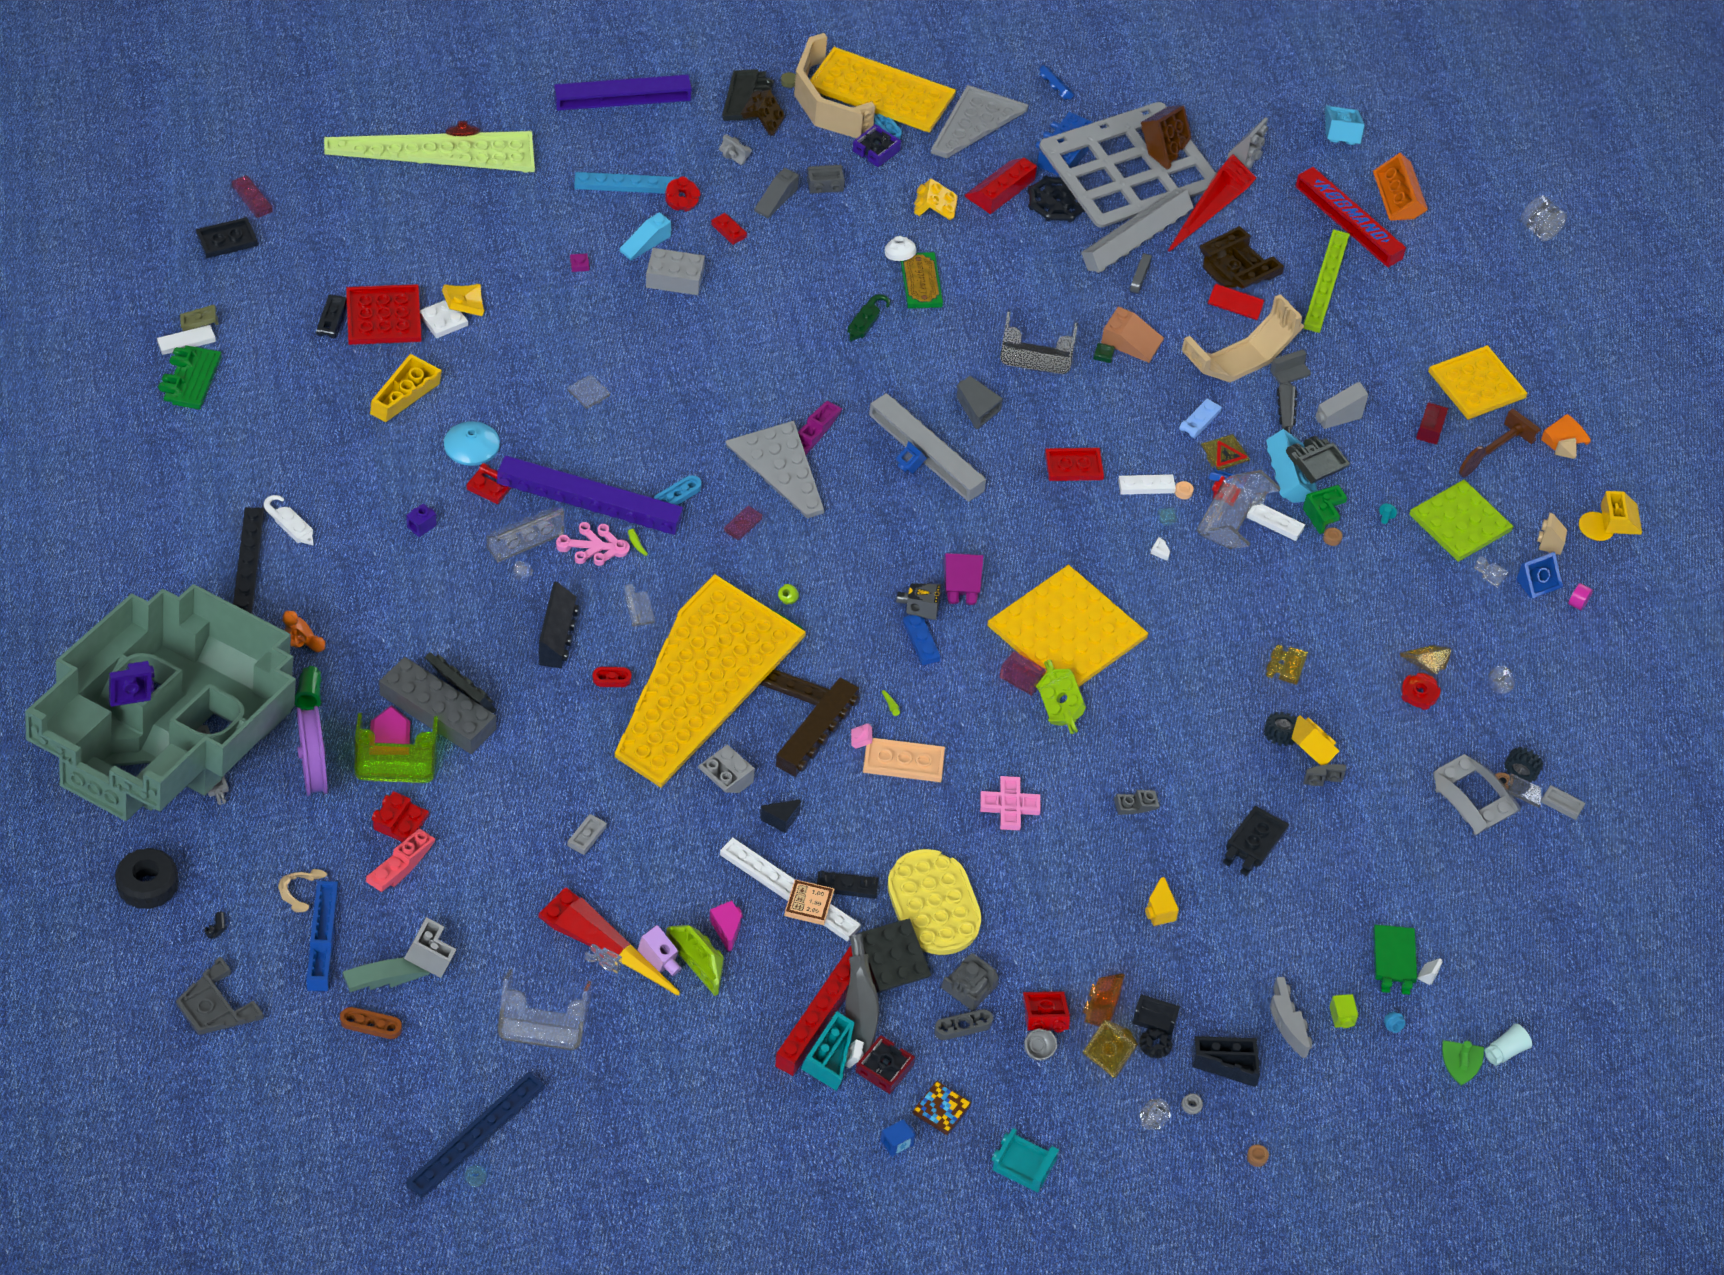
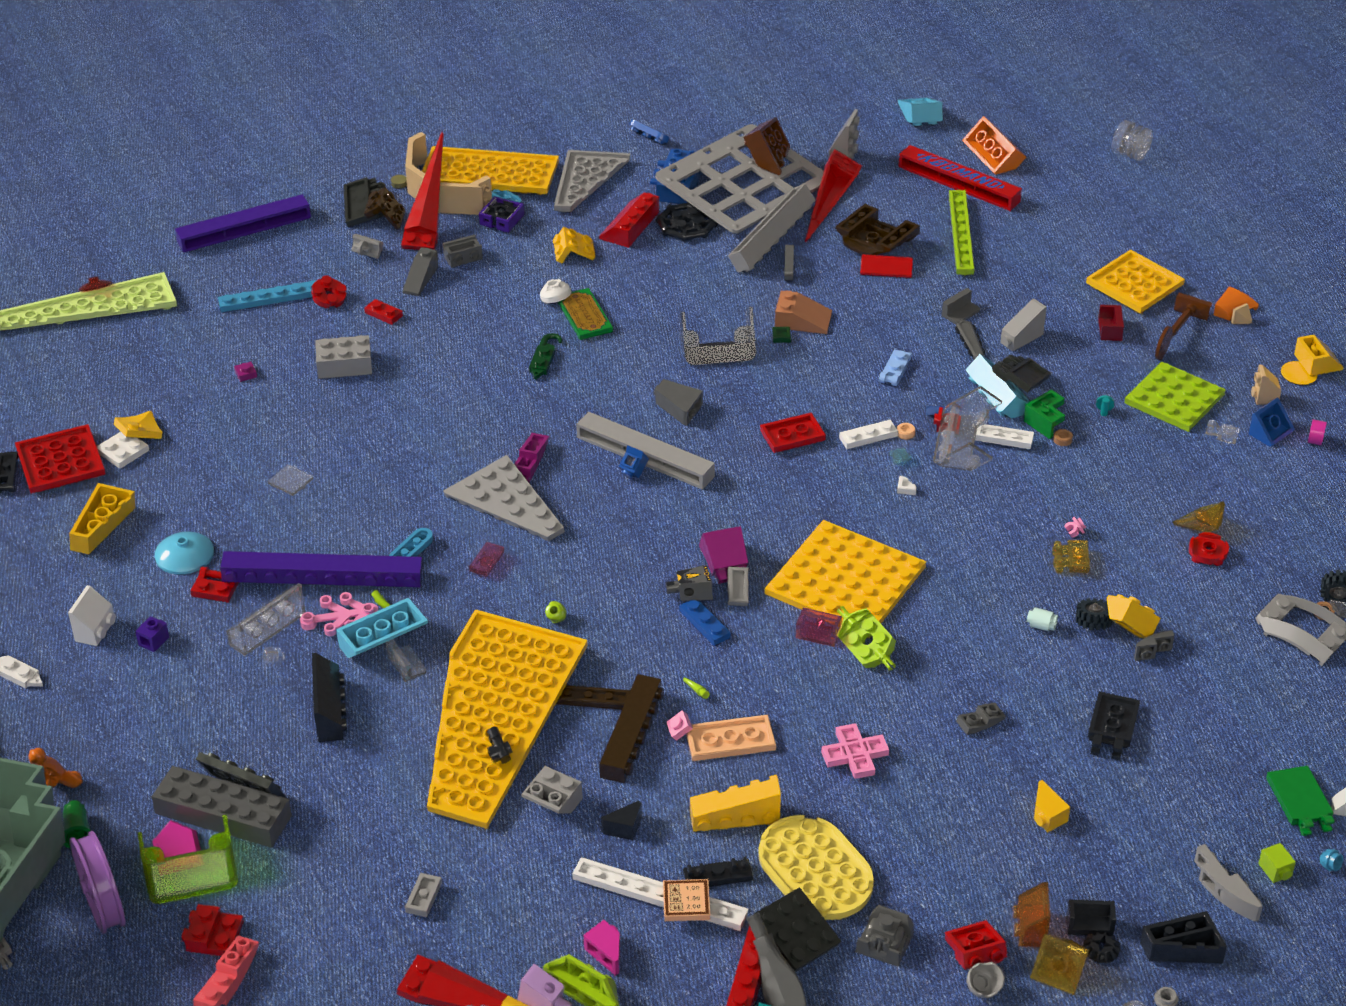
camera: 10 degrees left, 10 degrees down
(371, 489) = (91, 617): none -> white slope
(610, 676) = (399, 733): red plate -> none
(624, 569) = (379, 627): none -> medium azure slope
(648, 235) = (310, 328): medium azure slope -> none
(692, 718) = (499, 750): none -> black plate
(795, 138) = (423, 220): none -> red plate
(884, 828) = (737, 806): none -> yellow wedge
(956, 1031) = (890, 991): dark grey beam -> none
(963, 612) = (738, 586): none -> light grey tile
(1225, 452) = (931, 389): clear yellow piece -> none
(1232, 721) = (1042, 619): none -> light aqua brick
(1252, 352) = (925, 296): tan panel -> none
(1306, 634) = (1077, 526): none -> bright pink plate
(1501, 678) = (1280, 520): clear head -> none

